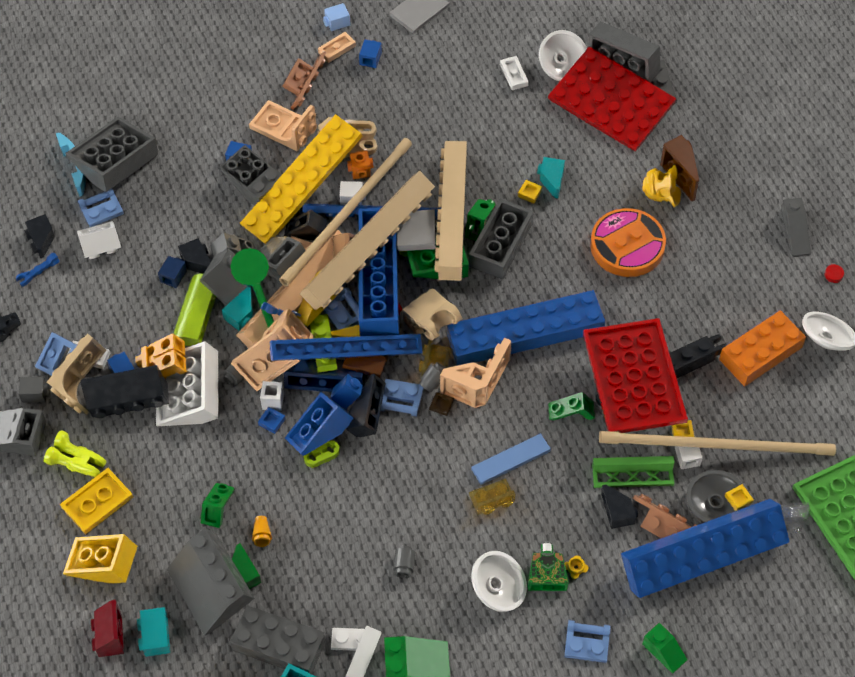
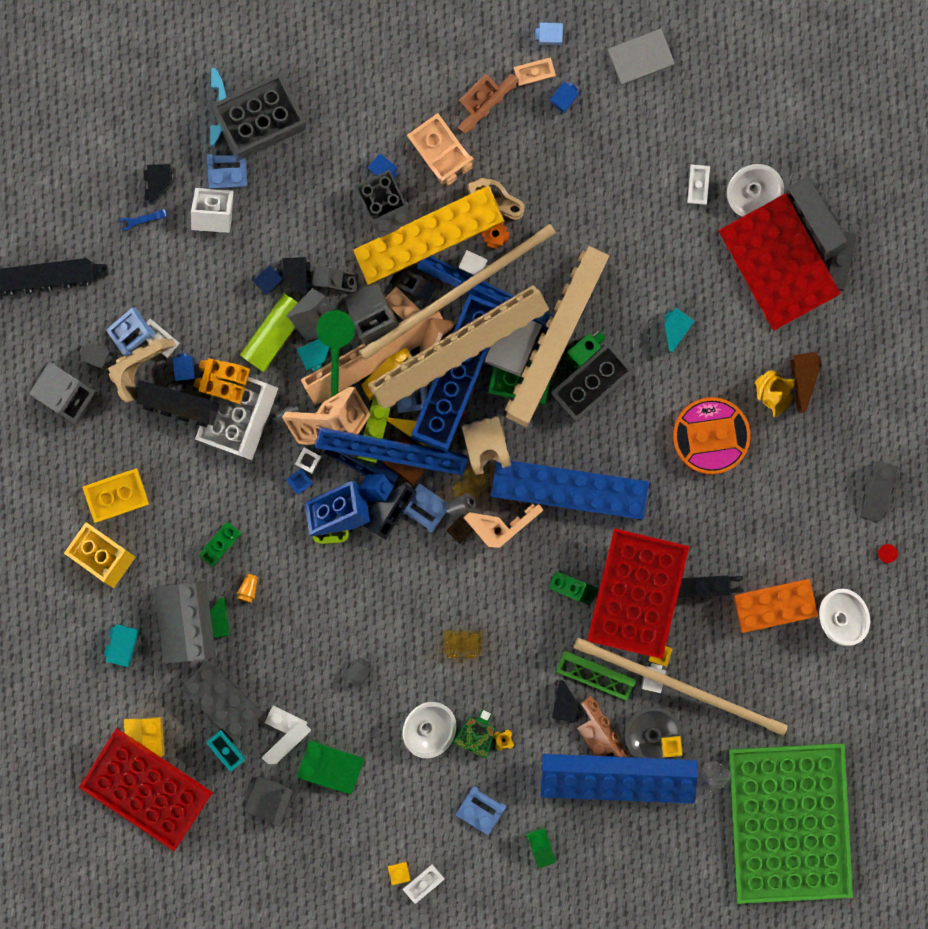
camera: 20 degrees right, 30 degrees up
(81, 455) = (115, 448): neon yellow piece -> none
(108, 630) = (82, 629): dark red slope -> none
(273, 310) = (340, 381): blue piece -> none
(510, 459) = (495, 613): medium blue tile -> none
(530, 191) = (646, 336): yellow plate -> none

